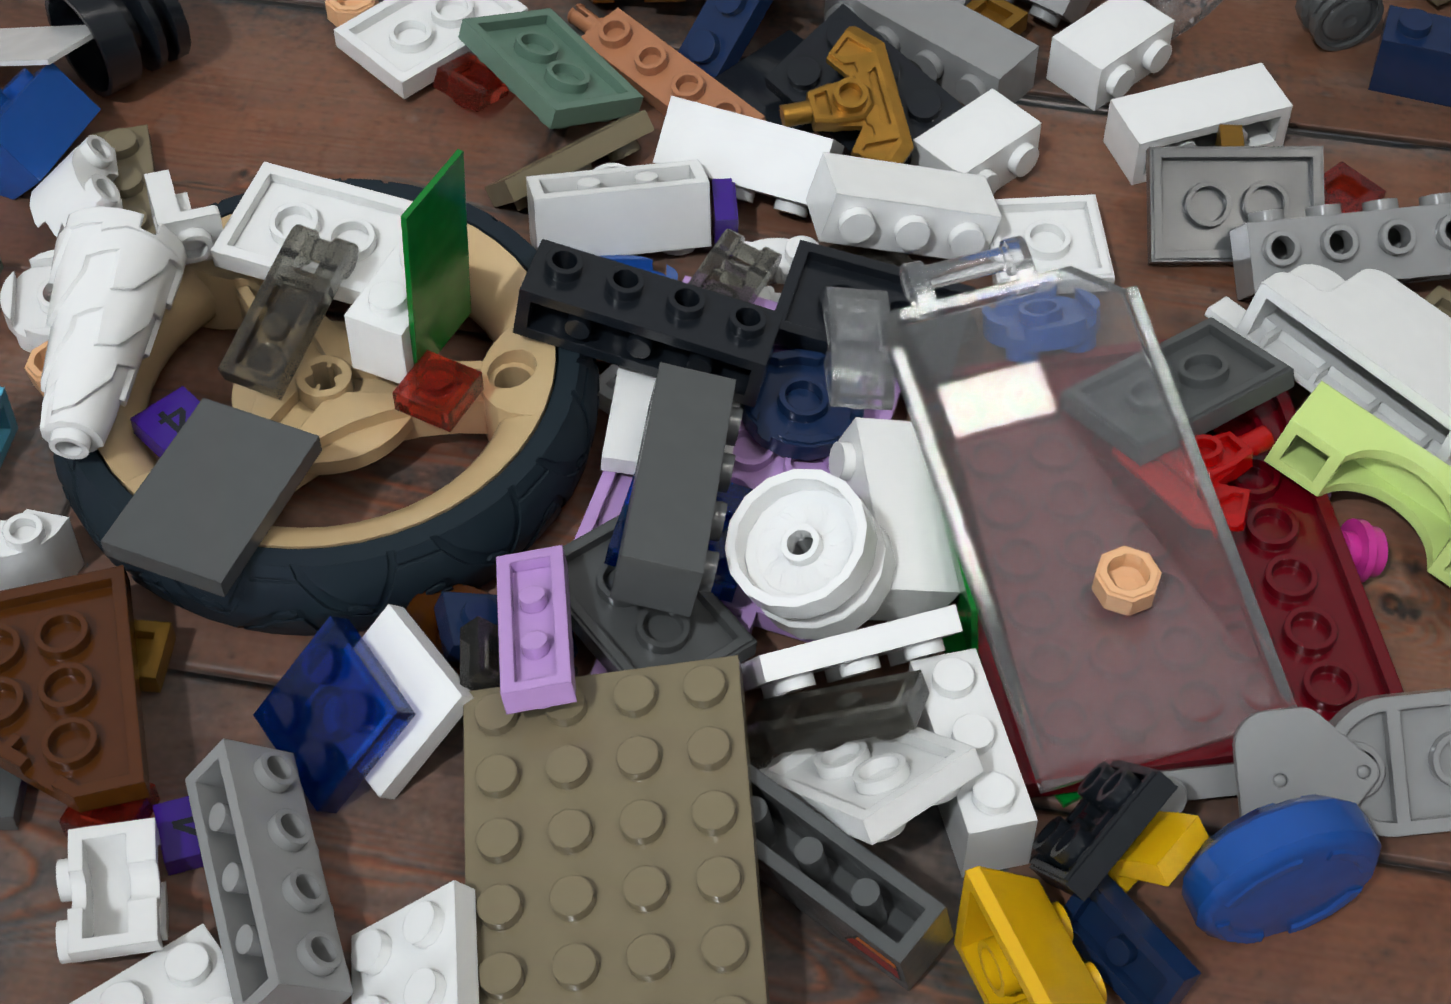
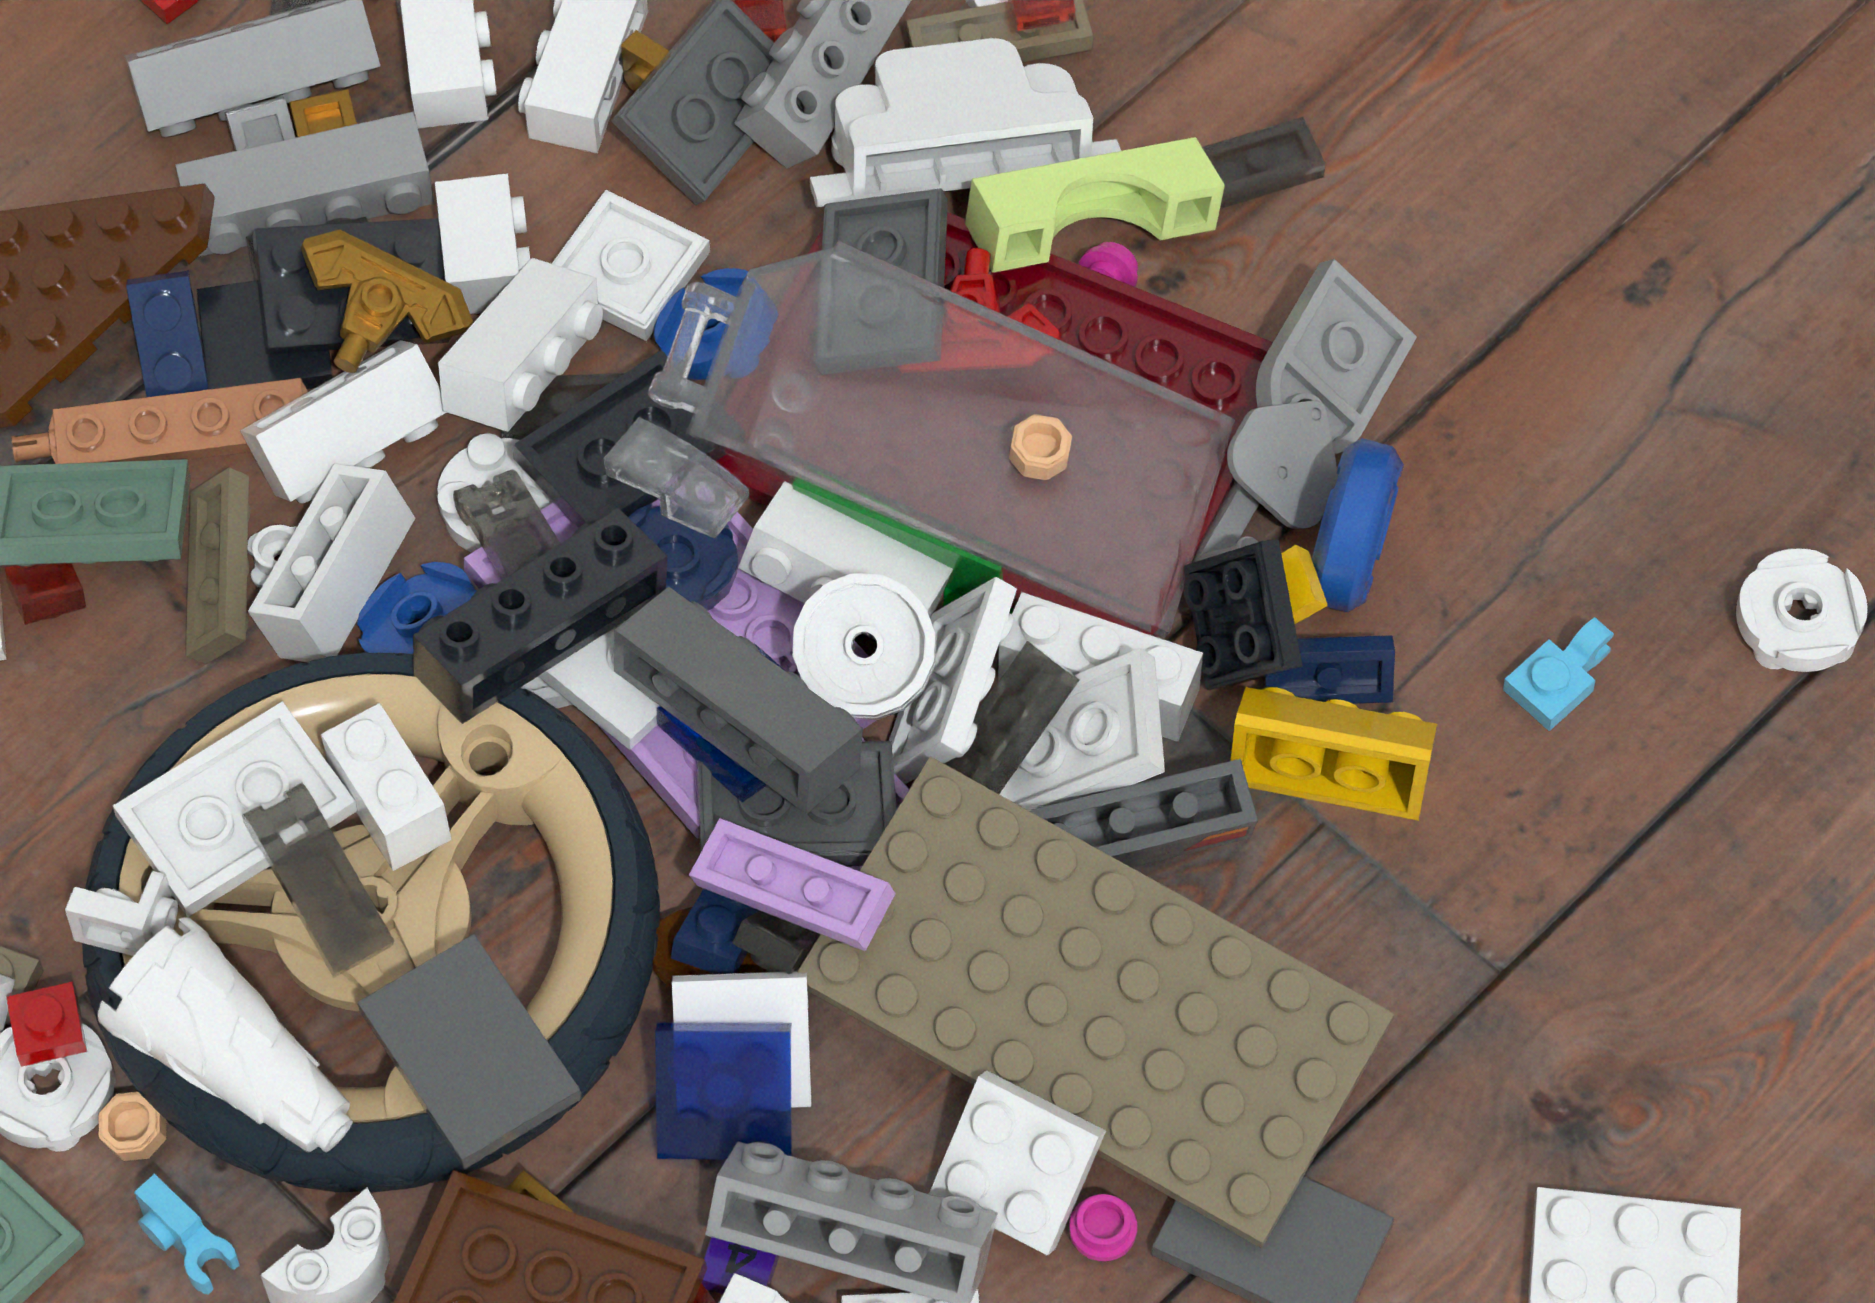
camera: 55 degrees left, 10 degrees up
(164, 419) = (346, 1047): dark purple tile -> none
(437, 259) = (413, 712): green piece -> none
(438, 390) = (484, 817): clear red plate -> none
(724, 207) = (409, 483): dark purple tile -> none

